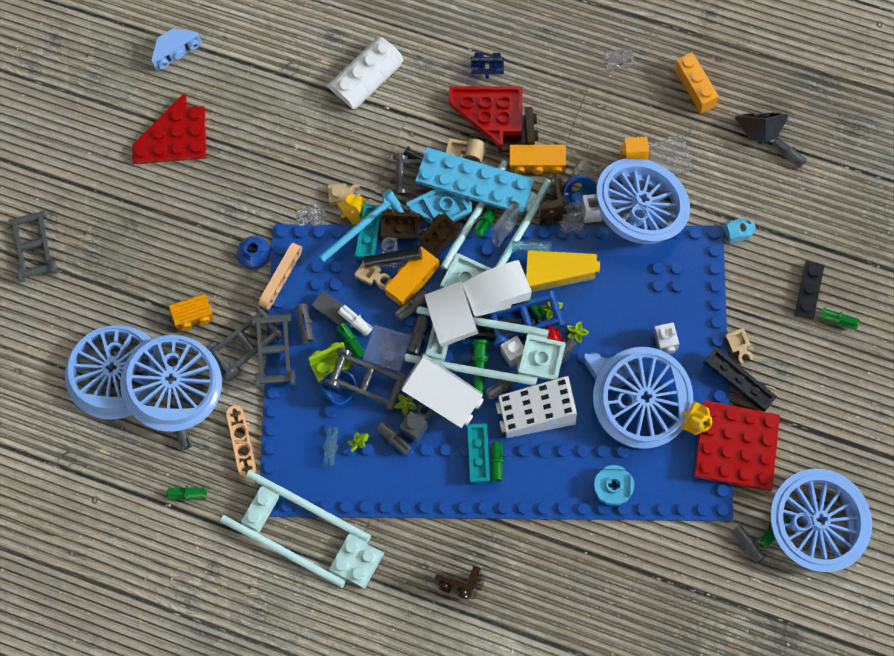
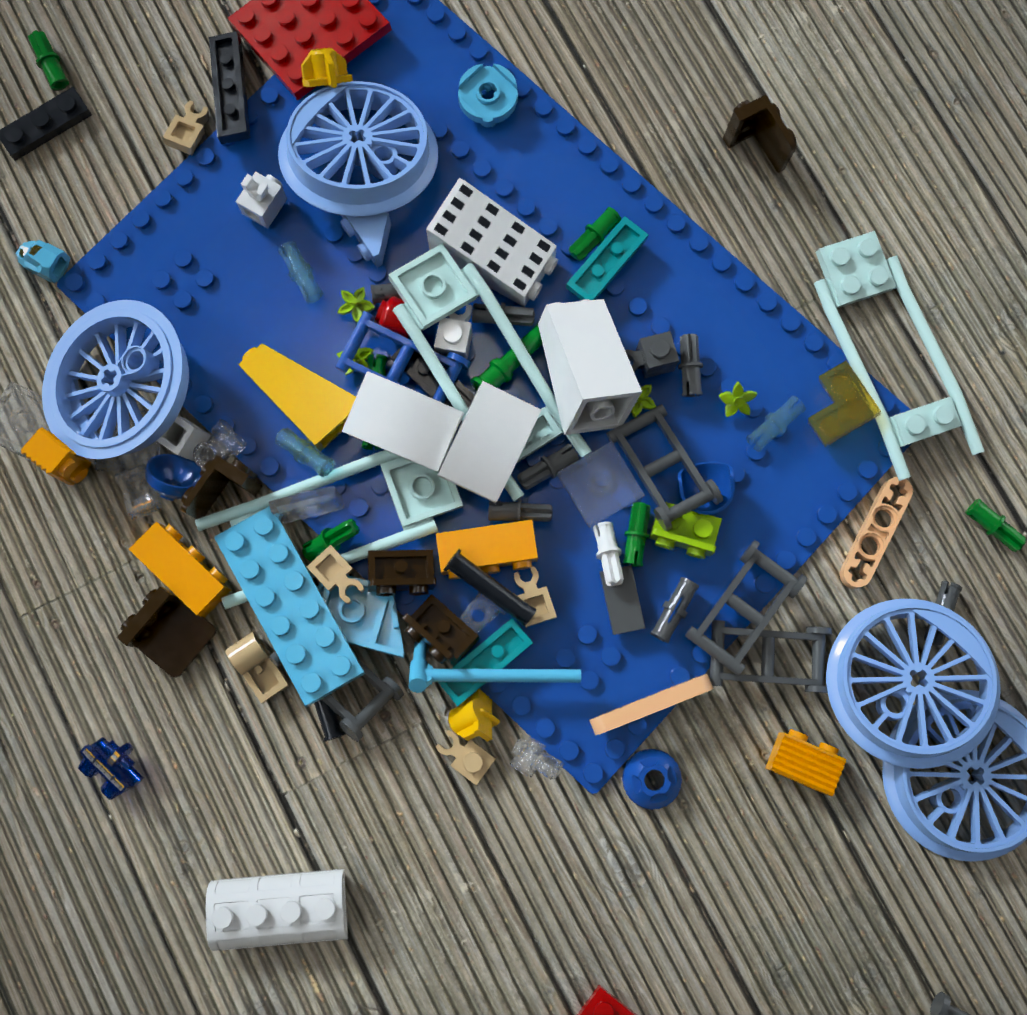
camera: 145 degrees left, 10 degrees up
(302, 484) = (850, 406): none -> clear yellow plate
(468, 208) = (332, 571): none -> tan plate
(490, 109) = (171, 694): red wing -> none
(614, 323) = (300, 272): none -> clear light blue pin

